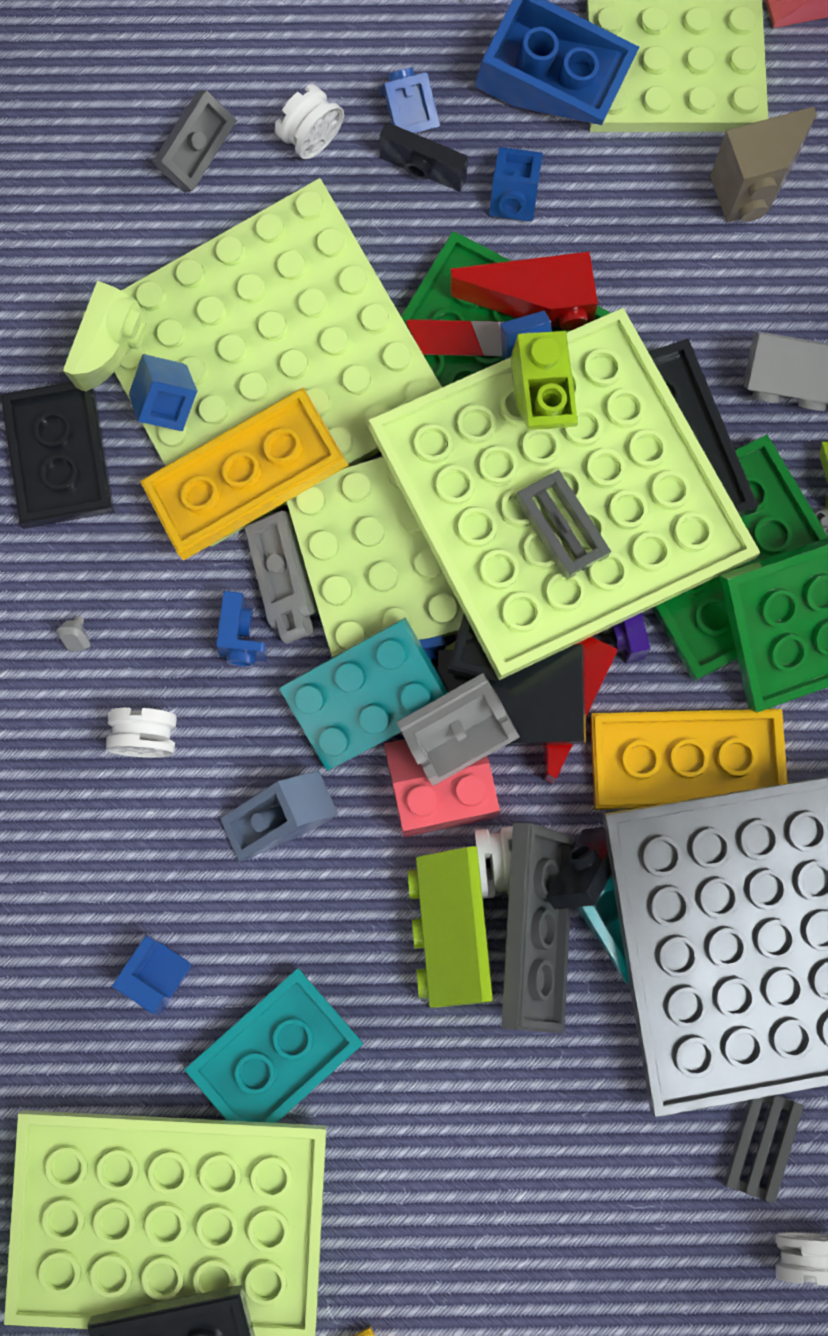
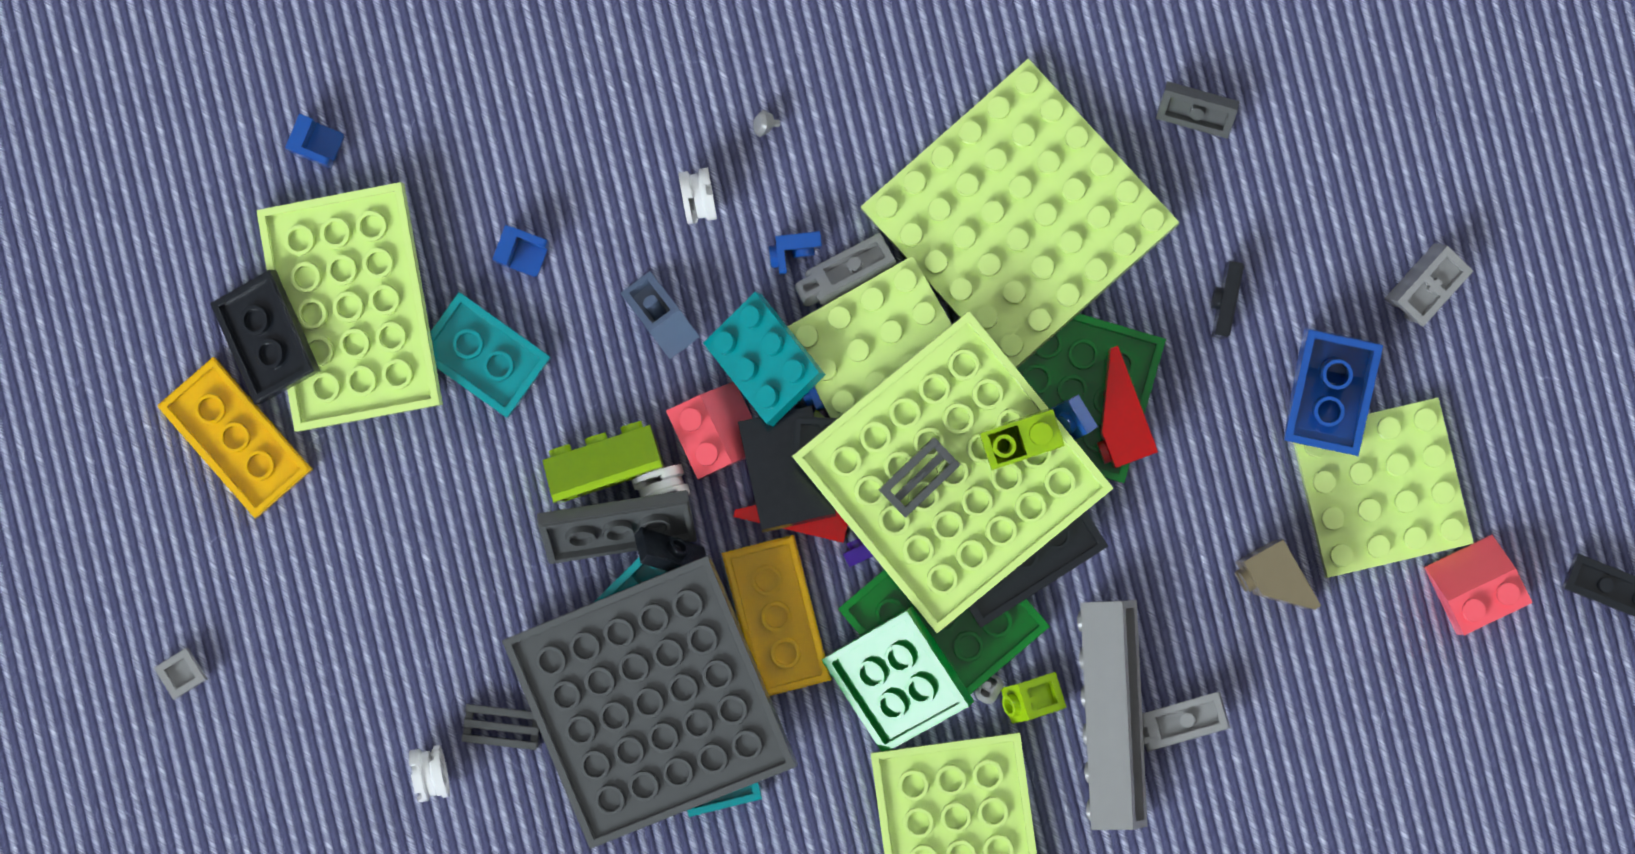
camera: 80 degrees right, 10 degrees up
(56, 454) = (908, 69): black tile -> none
(104, 336) = (1005, 91): yellowish green slope -> none
(162, 392) = (967, 143): blue panel -> none
(243, 473) = (915, 223): yellow tile -> none
(309, 122) = (1233, 200): white wheel -> none
(410, 101) = (1274, 277): bracket -> none
(457, 337) = (1075, 365): red sticker -> none
(458, 729) = (747, 434): light grey hinge -> none
(515, 184) = (1224, 380): blue bracket -> none

